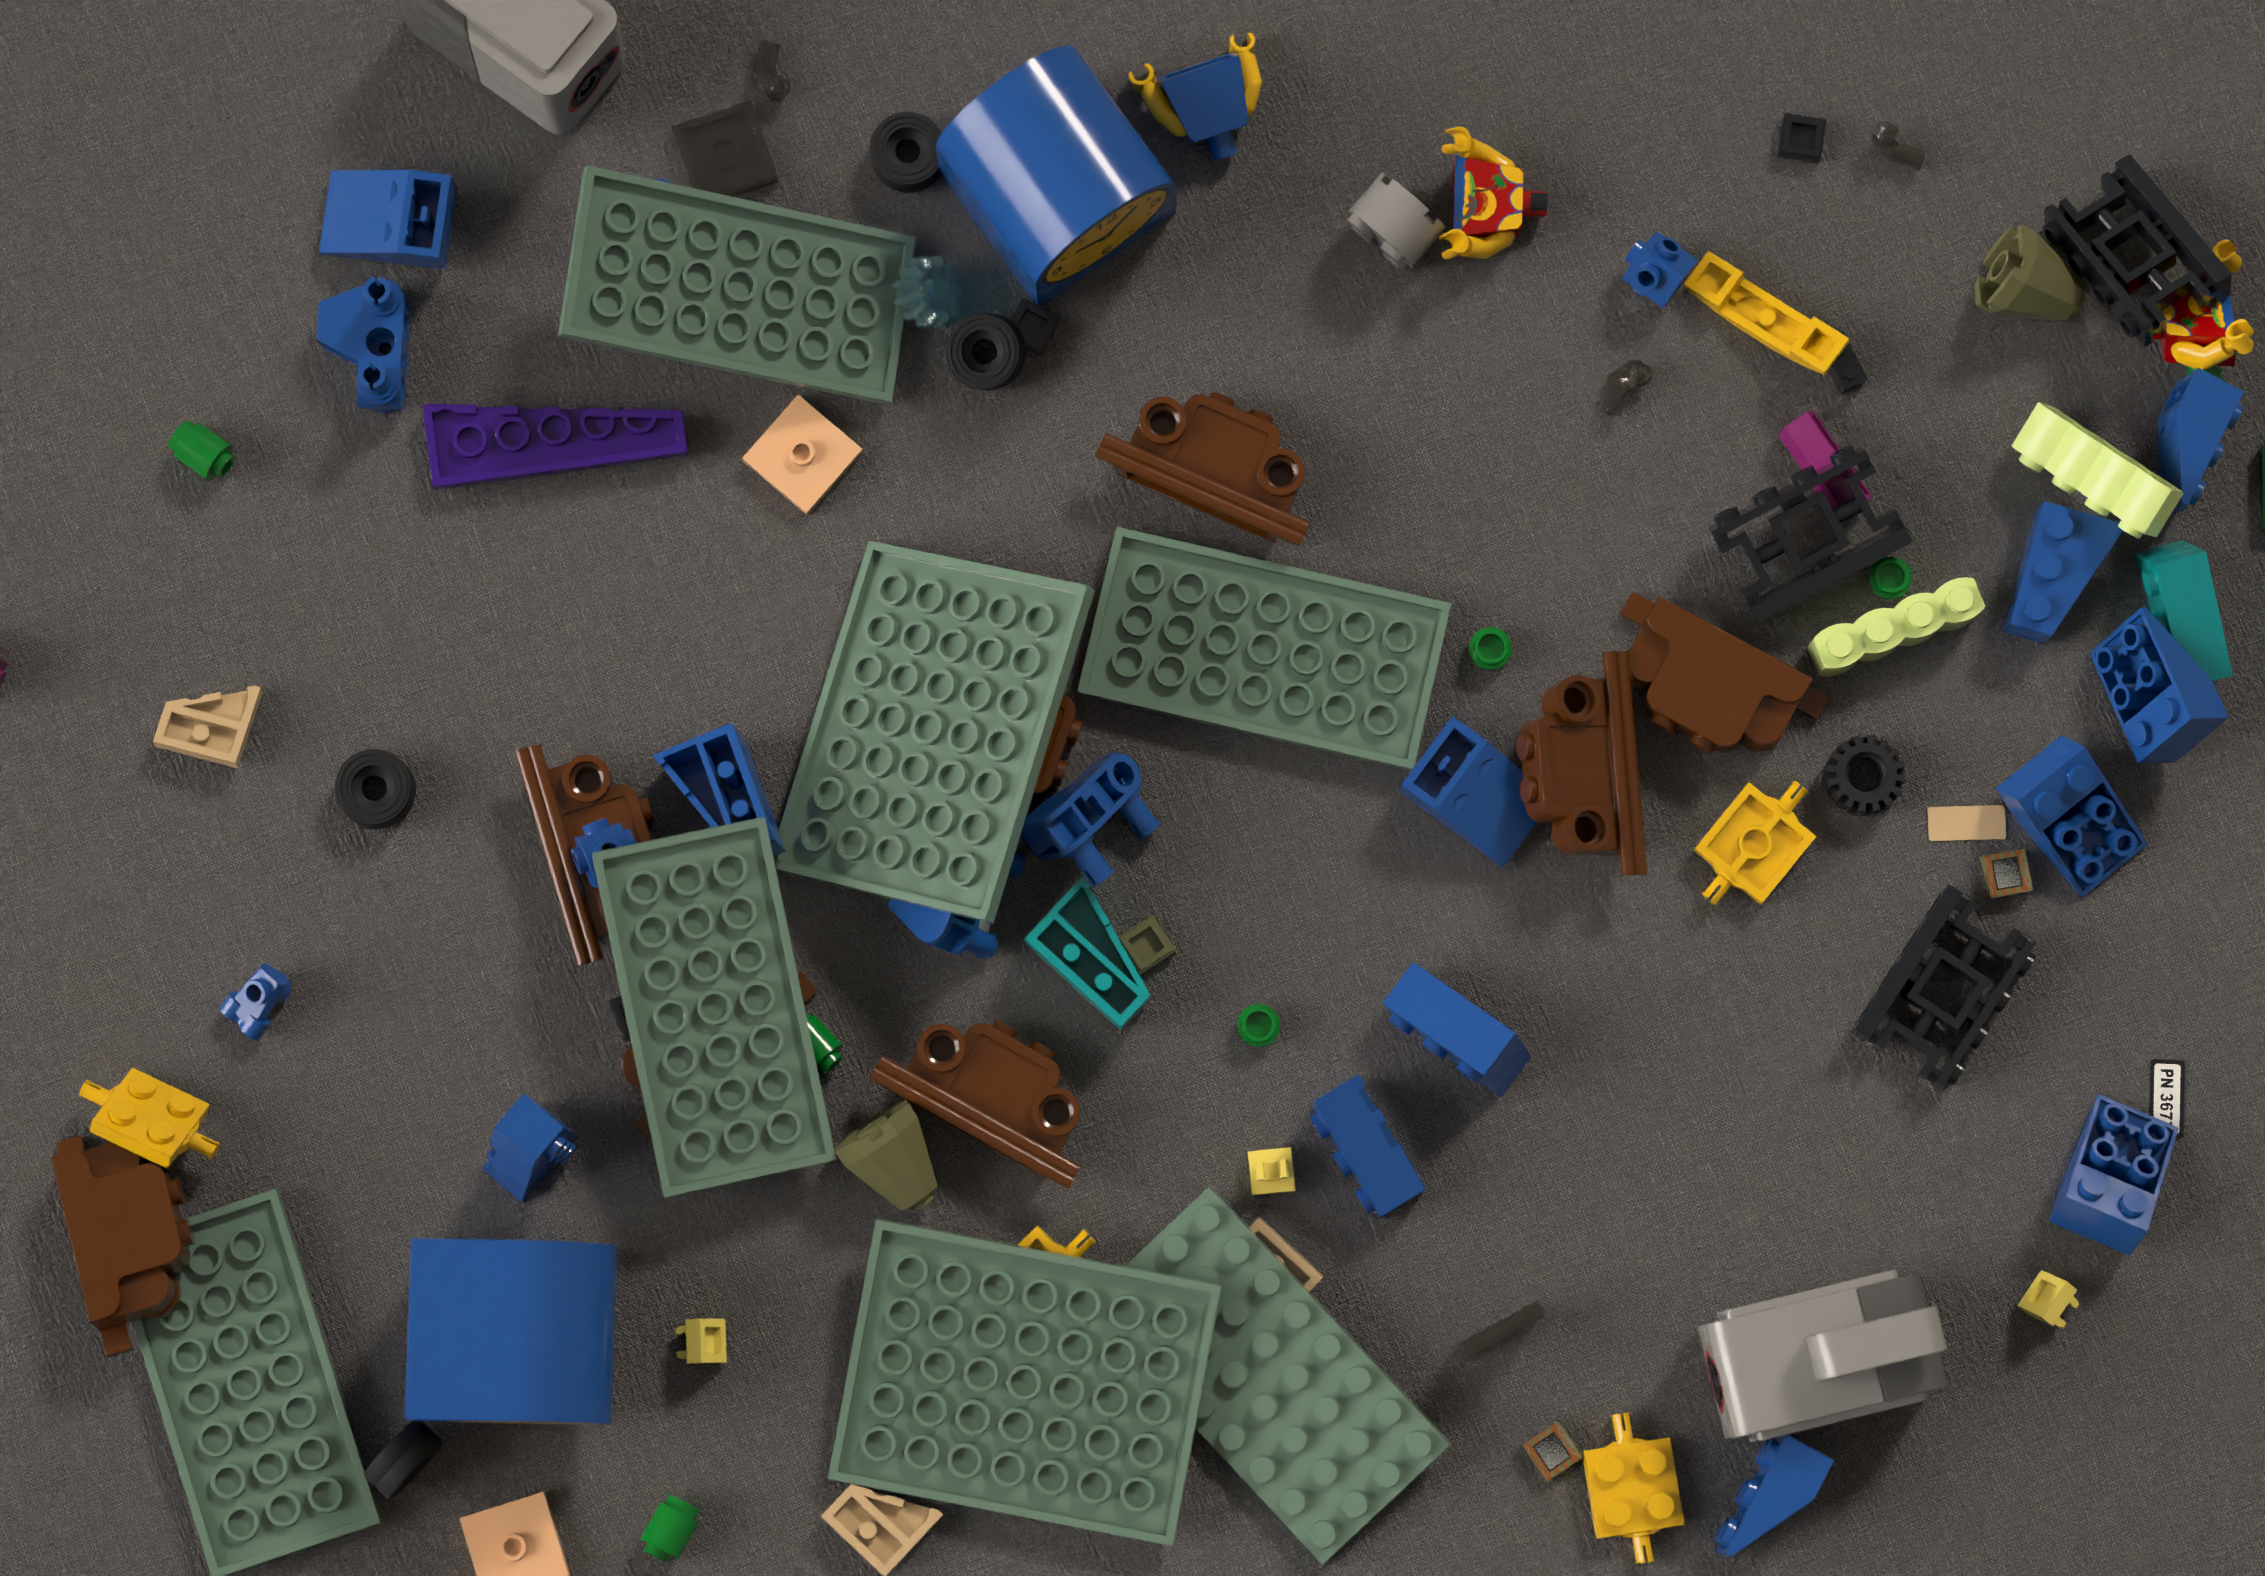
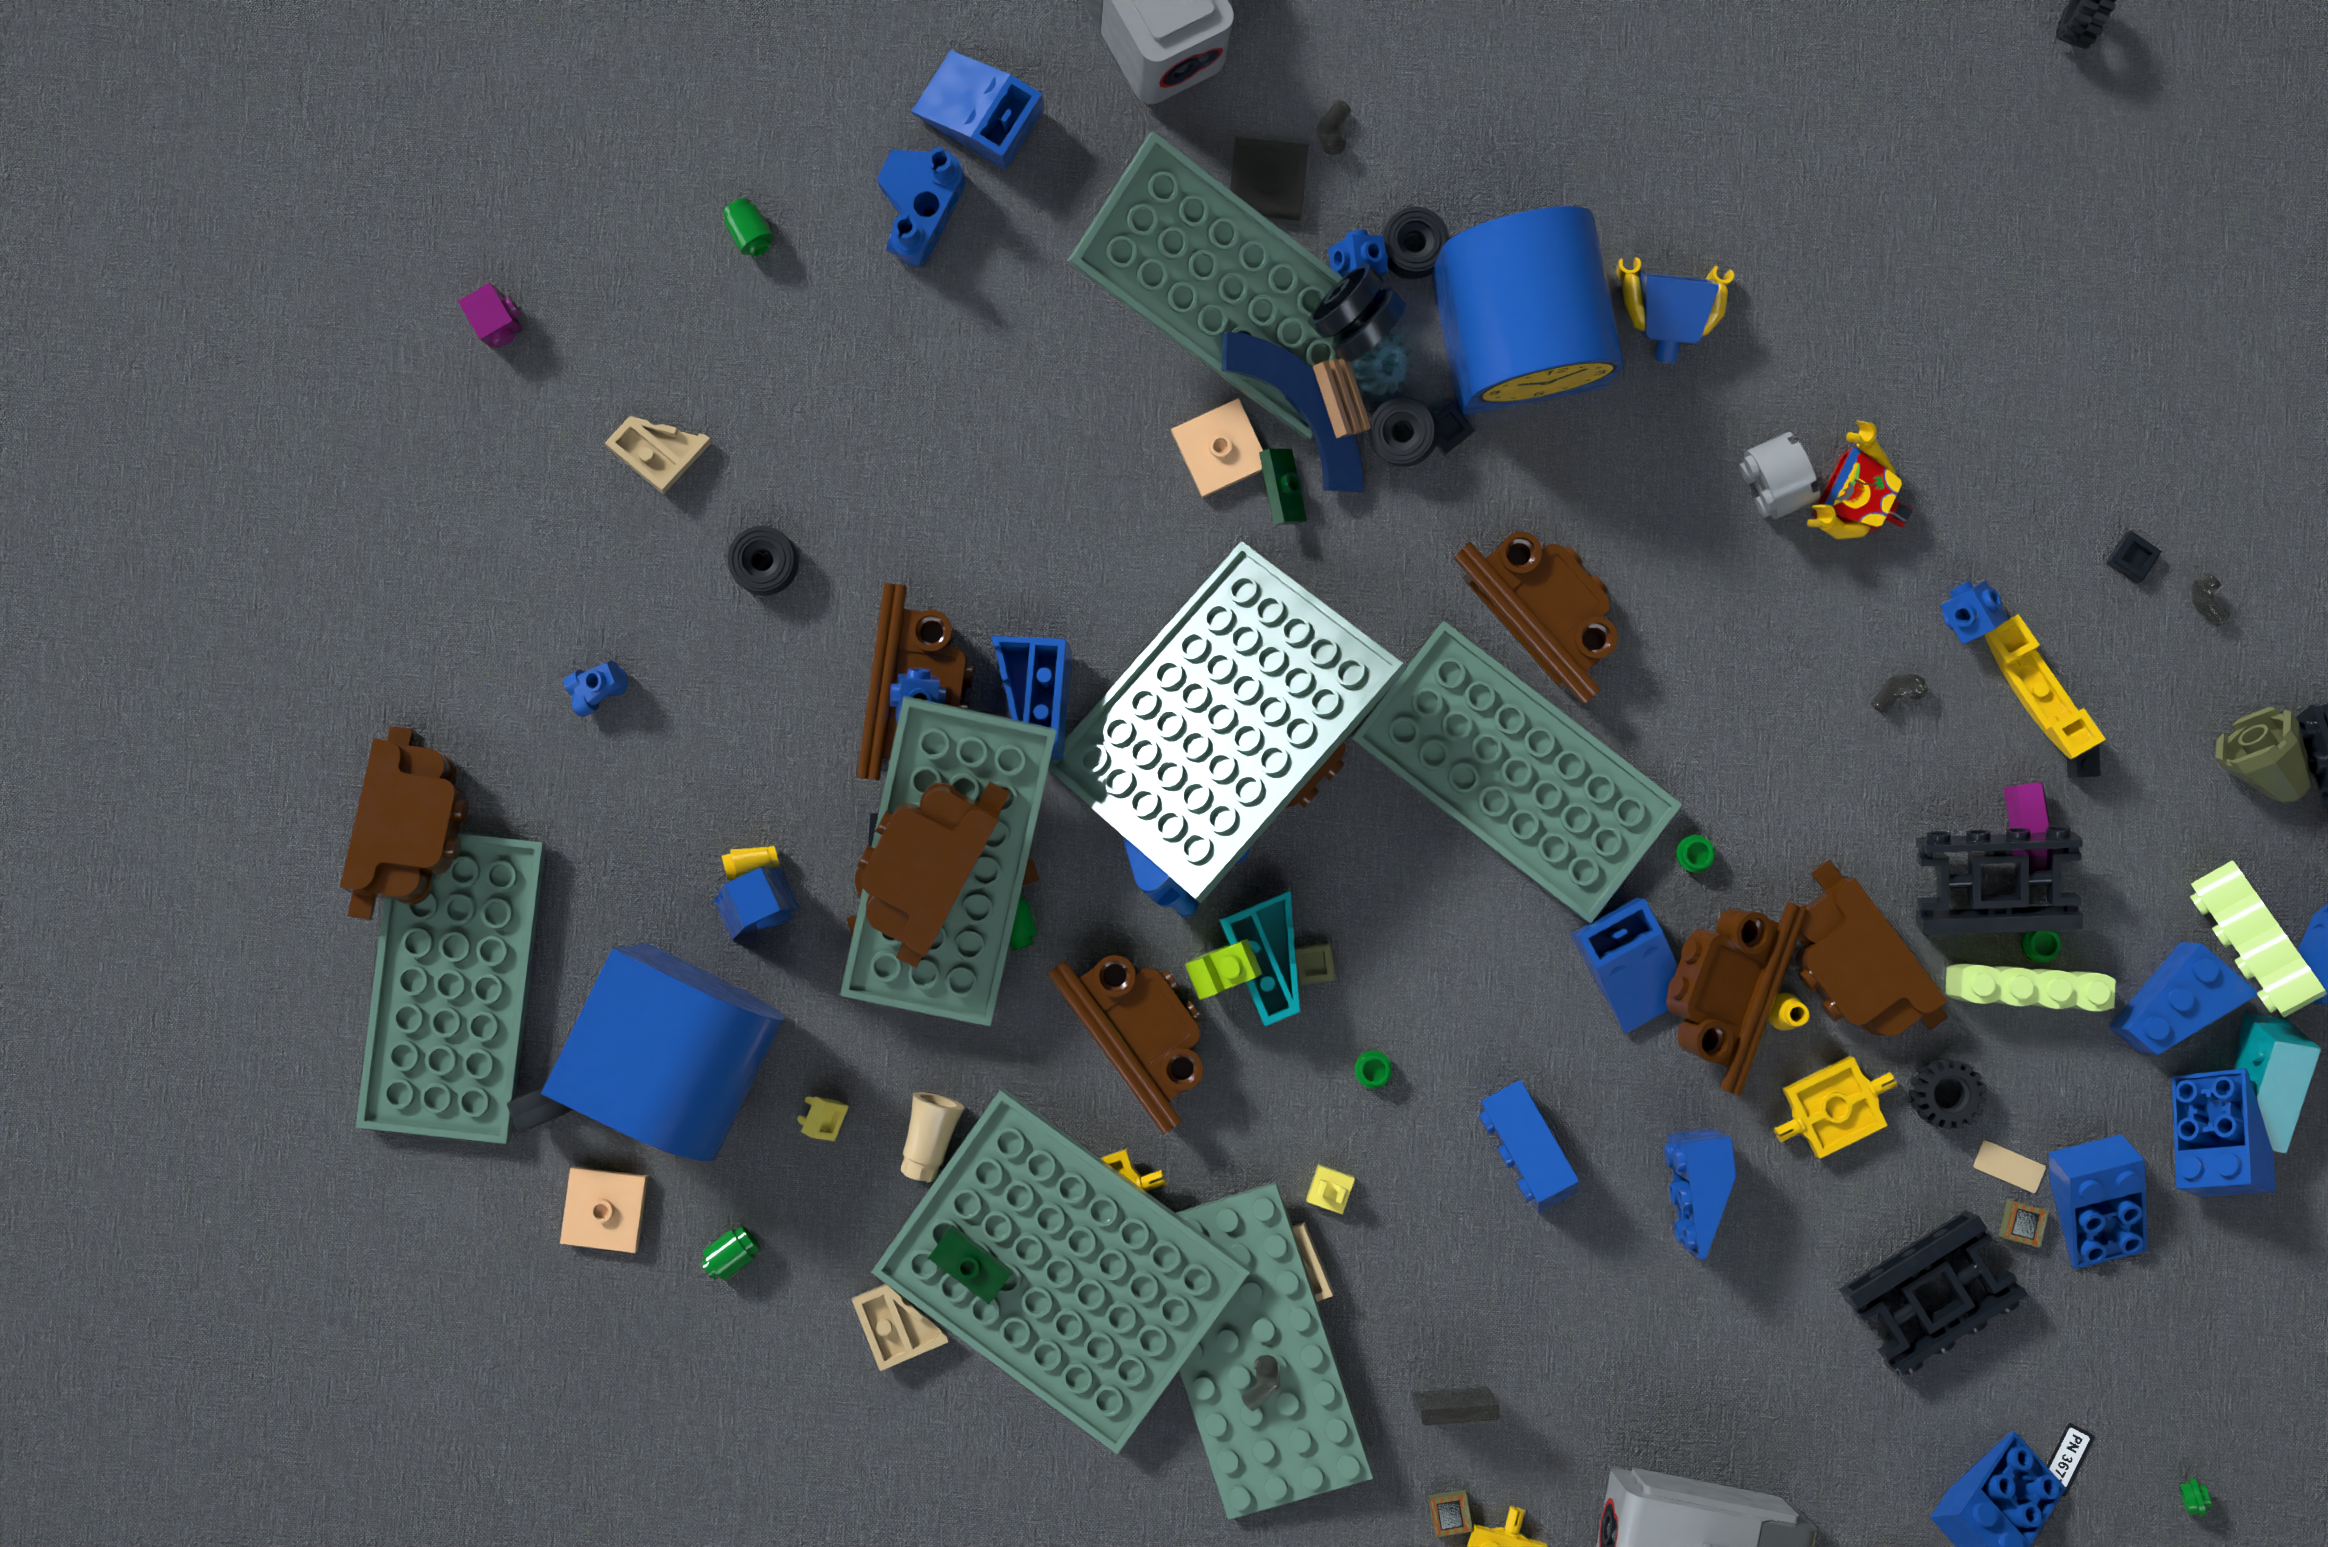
camera: 25 degrees right, 5 degrees up
(149, 1118) = (467, 742): yellow plate -> none
(494, 1109) = (748, 859): none -> yellow cone
(512, 442) = (996, 334): dark purple wing -> none
(691, 1013) = (925, 863): none -> reddish brown brick
(824, 1307) = (929, 1135): none -> tan plant
(857, 194) = (1356, 250): none -> blue brick
(871, 360) = (1299, 385): none -> dark blue tile
(880, 252) = (1357, 313): none -> black wheel
(886, 464) = (1283, 486): none -> dark green plate
(891, 1157) = (1035, 1041): olive cone -> none
(905, 345) = (1342, 397): none -> medium nougat tile
(928, 1417) = (970, 1264): none -> dark green plate
(1050, 988) = (1223, 969): none -> lime brick
(1070, 817) = (1295, 838): blue piece -> none
(1293, 1394) = (1266, 1382): none -> clear smoke arm
(1365, 1148) = (1414, 1208): blue wedge -> none
(1646, 975) = (1701, 1186): none -> blue slope
(1654, 777) = (1781, 1010): none -> yellow cone

